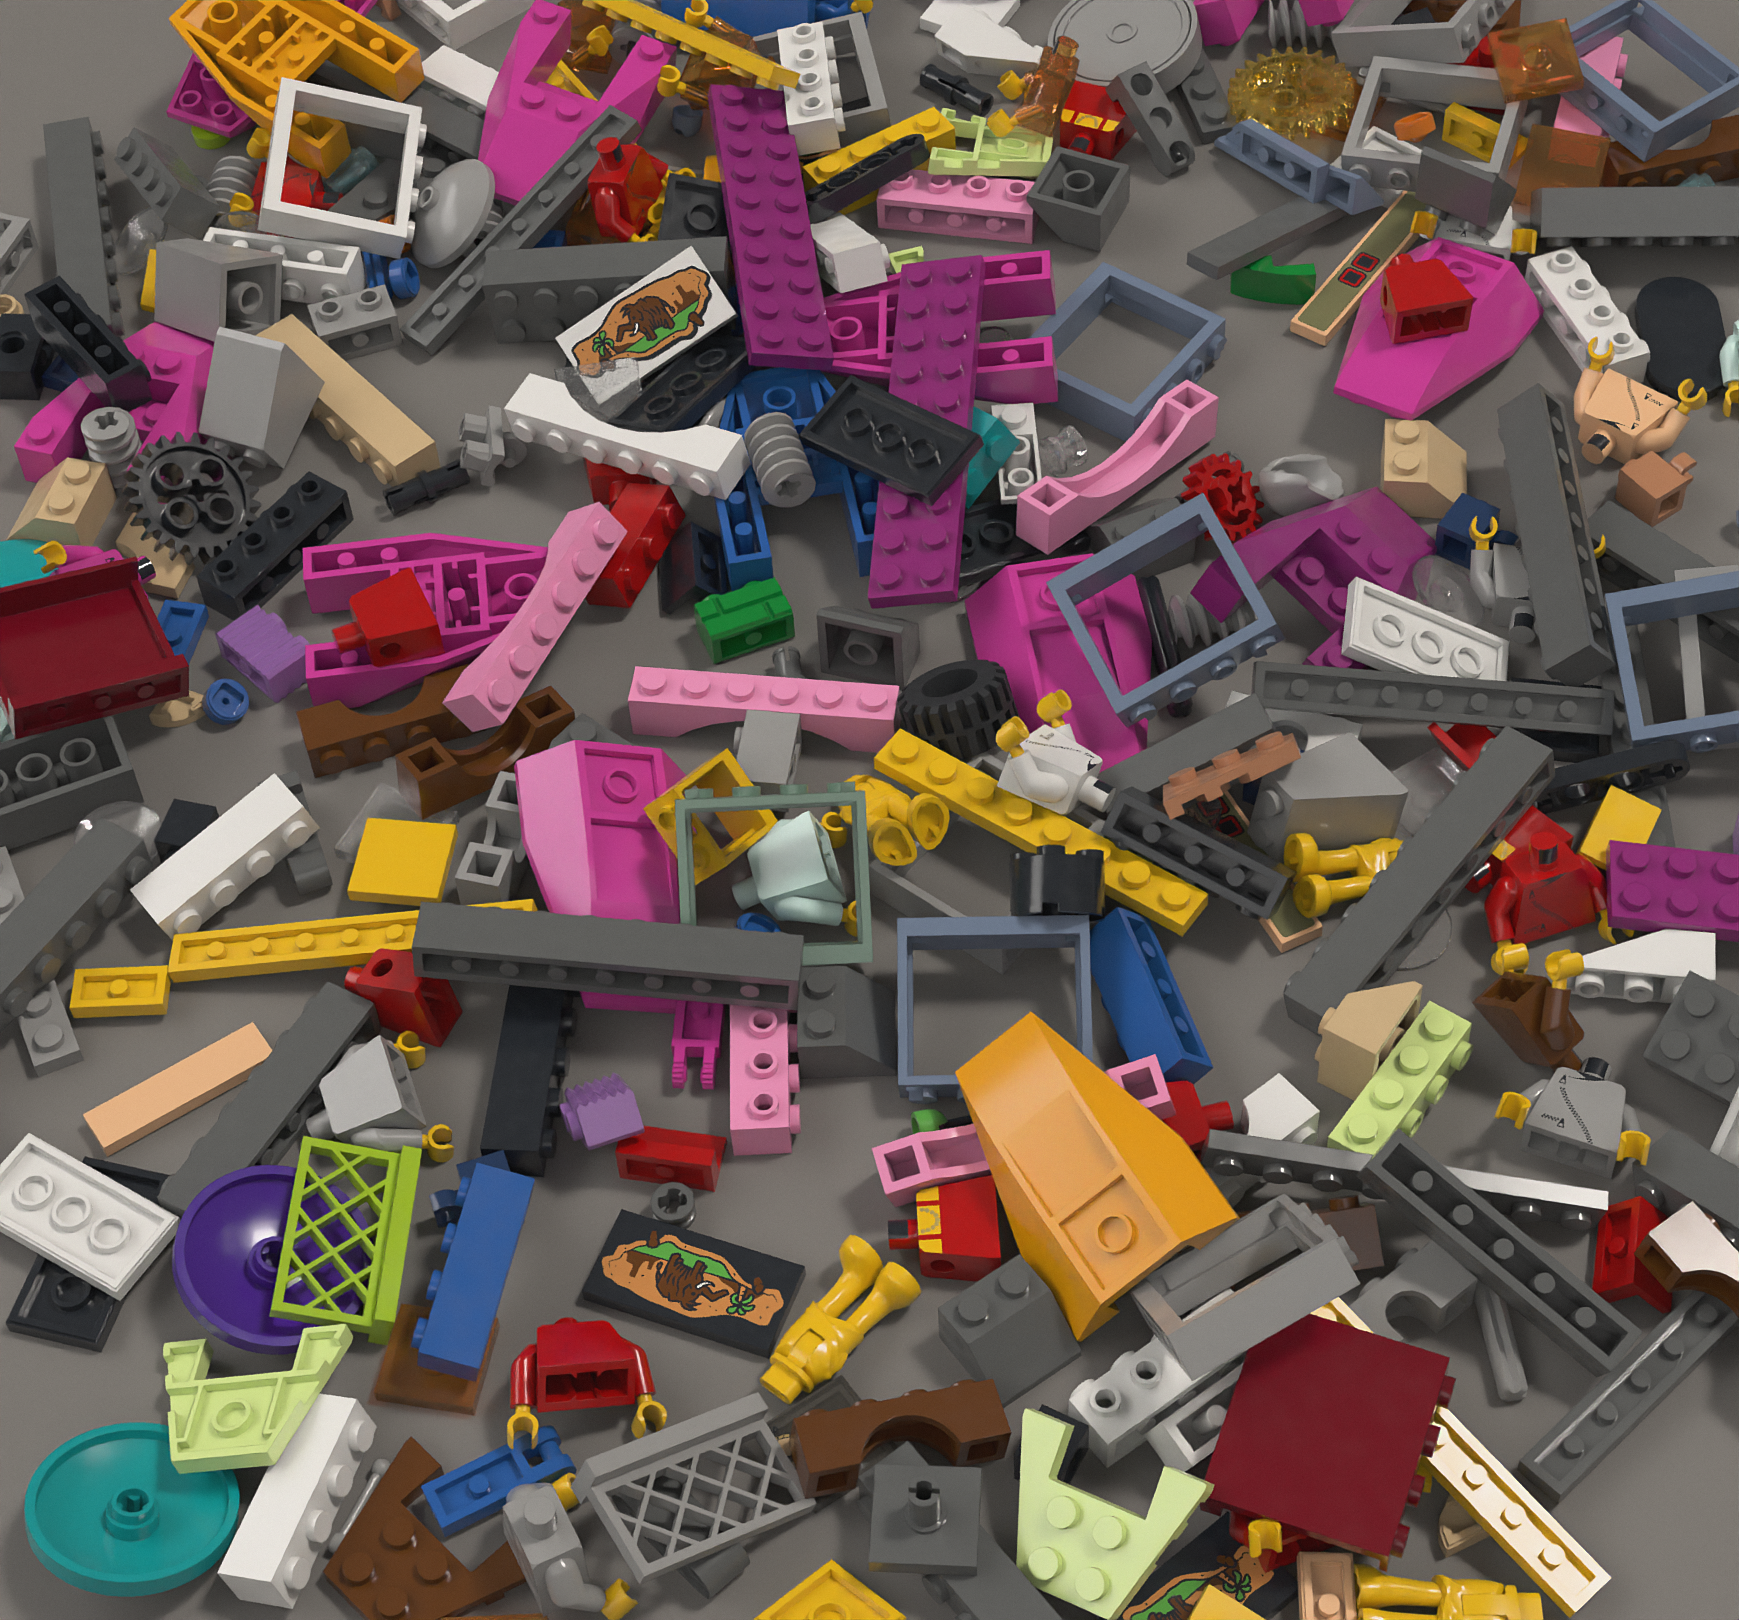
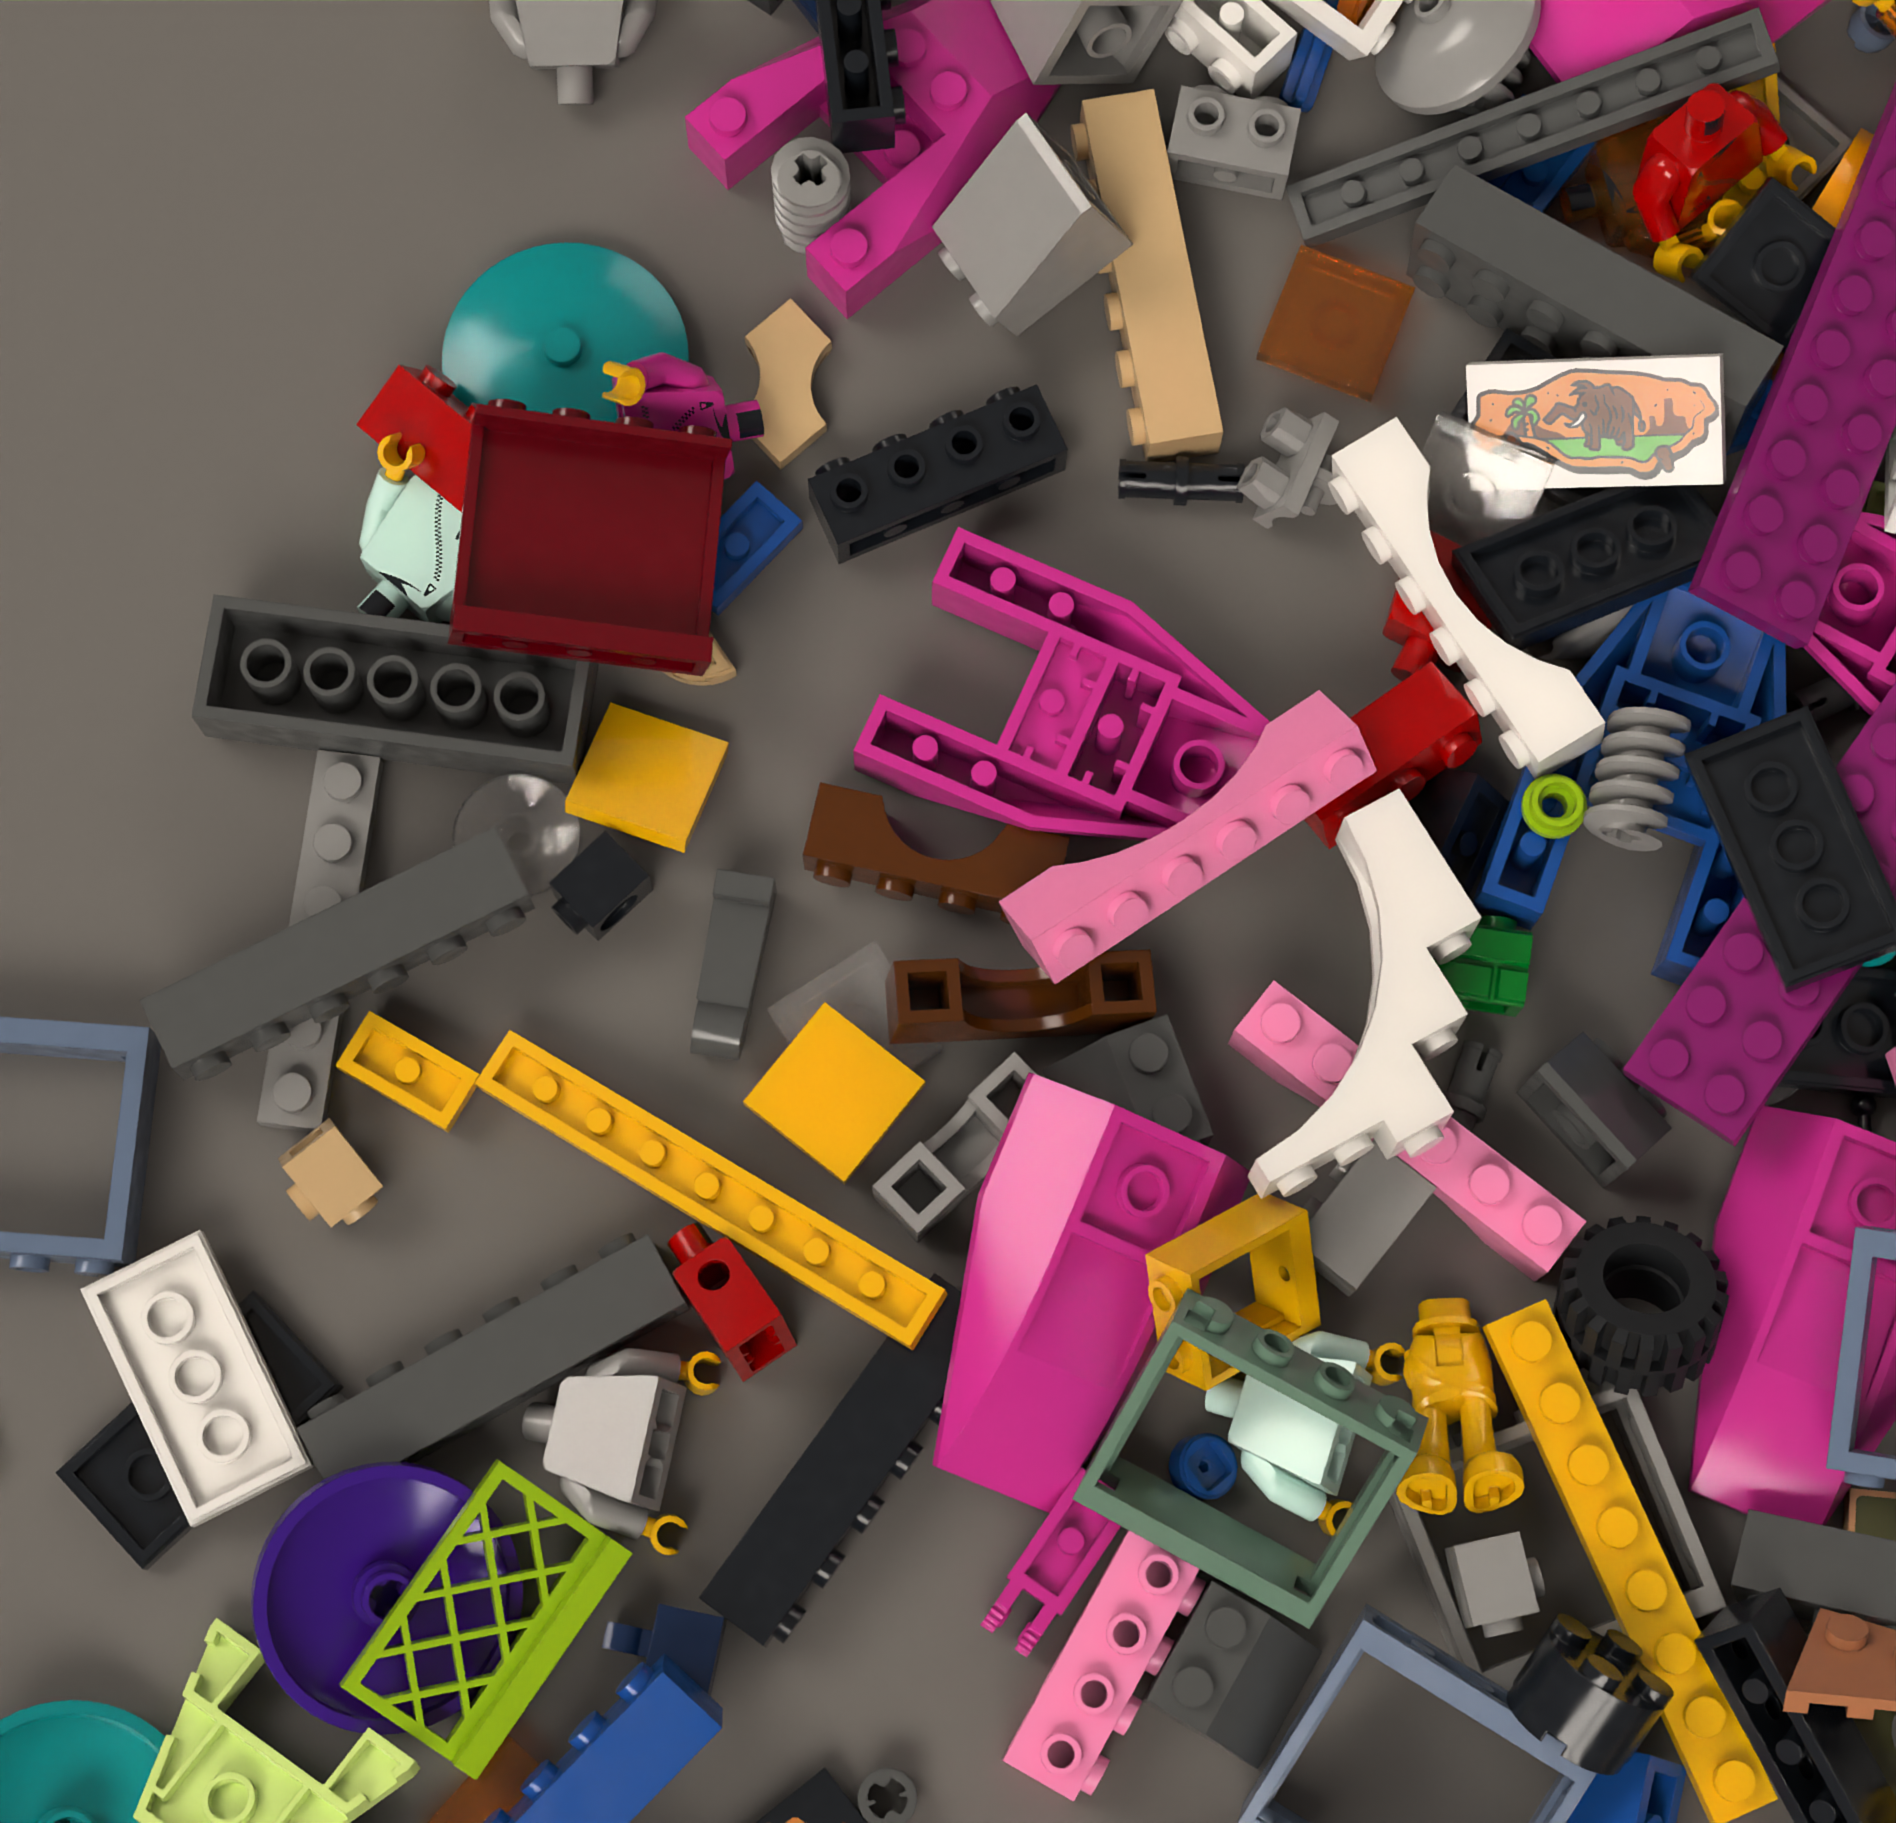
camera: 25 degrees right, 25 degrees up
(67, 504) = (707, 240): tan slope -> none
(100, 1062) = (329, 1177): none -> tan brick
(177, 1089) = (410, 1256): light nougat tile -> none
(183, 465) = (878, 290): black gear -> none
(185, 771) = (646, 777): none -> yellow tile
(225, 701) = (751, 689): blue tile -> none
(225, 858) = (621, 965): white brick -> none
(265, 652) = (839, 645): medium lavender brick -> none
(391, 622) = (997, 741): red torso -> none
(404, 278) = (1339, 94): blue tile -> none
(469, 378) = (1335, 323): none -> clear orange tile
(601, 1112) = (868, 1635): medium lavender brick -> none
(608, 955) = (987, 1454): dark grey brick -> none
(672, 1156) = (928, 1721): red panel -> none
(704, 598) = (1412, 916): none -> white arch
(742, 499) = (1559, 788): none -> lime plate
(964, 875) = (1495, 1583): none -> light grey brick
(1049, 763) = (1704, 1488): white torso -> none

